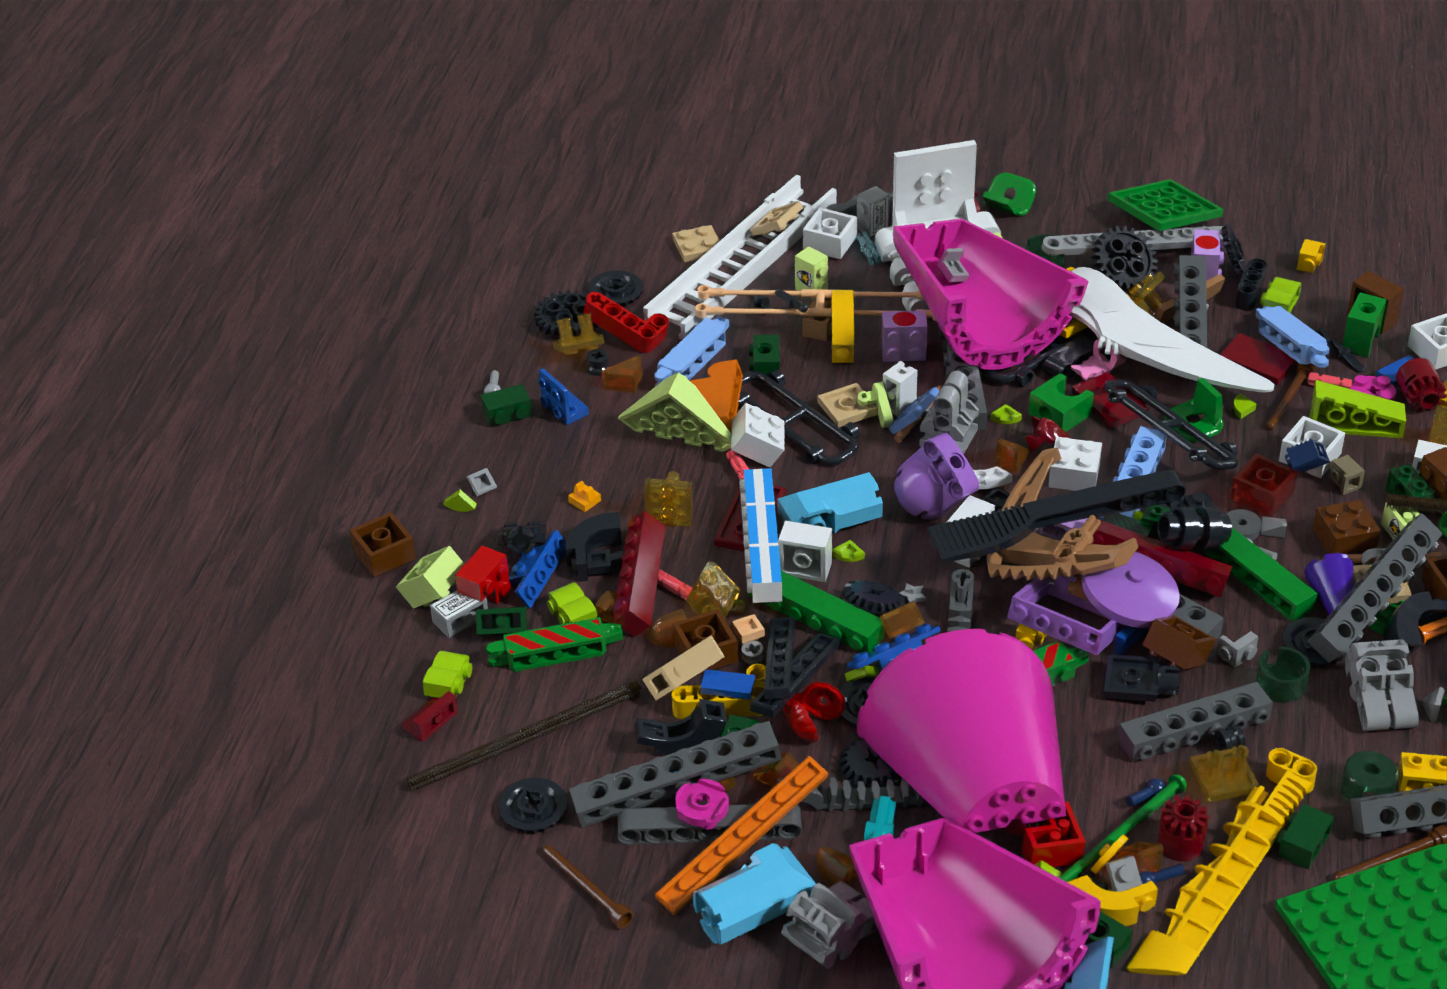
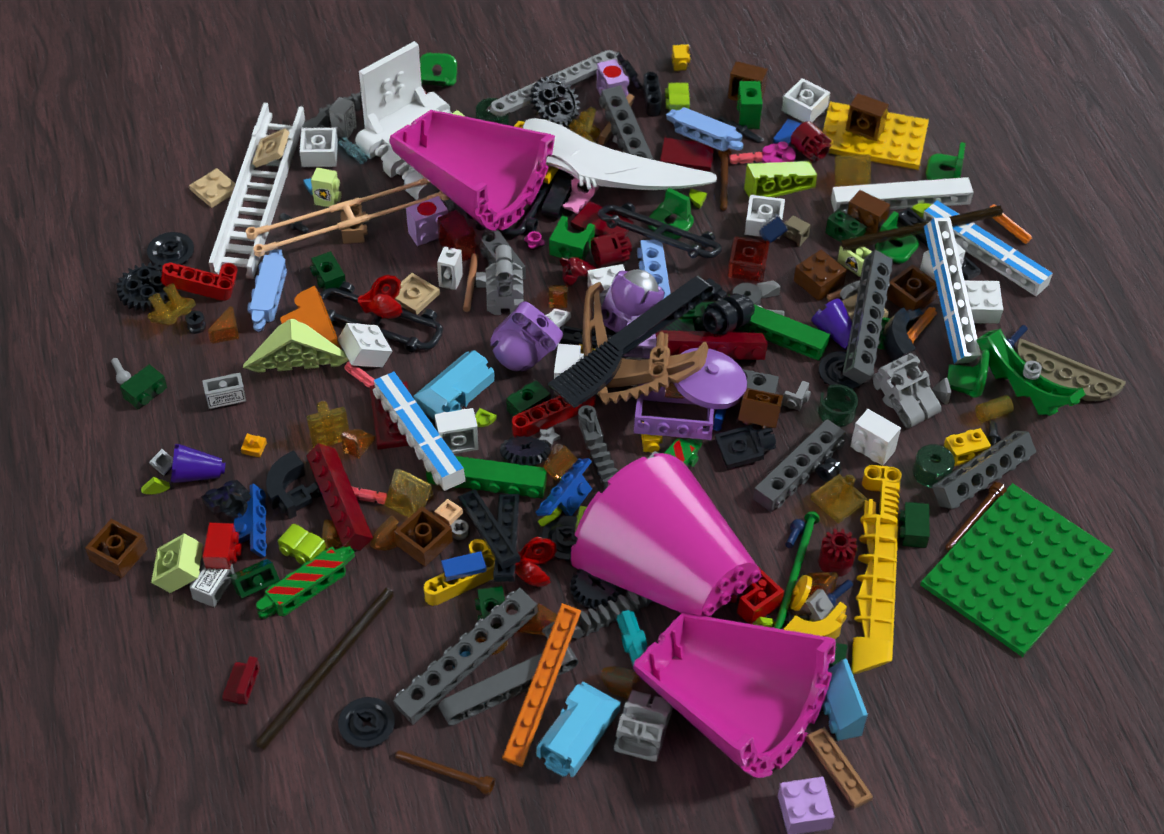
camera: 30 degrees left, 10 degrees up
(447, 674) = (237, 641): lime brick -> none
(508, 493) = (194, 465): none -> dark purple cone
(559, 399) = (186, 367): blue bracket -> none
(583, 433) = (224, 390): none -> brick
(668, 737) = (452, 617): black arch -> none
(683, 667) = (423, 566): tan slope -> none
(693, 528) = (356, 442): none -> clear orange slope
(702, 815) = (501, 683): dark pink plate -> none
(792, 301) = (330, 220): black piece -> none
(803, 398) = (381, 298): none -> red animal
(842, 326) = (380, 227): yellow arch -> none
(877, 396) = (437, 279): yellowish green piece -> none
(908, 550) = (527, 398): none -> dark green brick
(914, 410) = (471, 282): medium blue tile -> none
(925, 570) = (545, 416): none -> red beam
(927, 359) = (456, 234): none -> clear red brick
(952, 266) = (440, 152): light grey bracket -> none
(1006, 415) = (535, 262): lime tile -> none
(1018, 392) = (534, 240): none -> dark pink plate
(1084, 467) = (629, 298): none -> medium lavender piece
(1101, 424) = (610, 249): none -> dark red gear
(1165, 204) = (557, 45): green plate -> none
(1307, 721) = (875, 437): none -> white brick

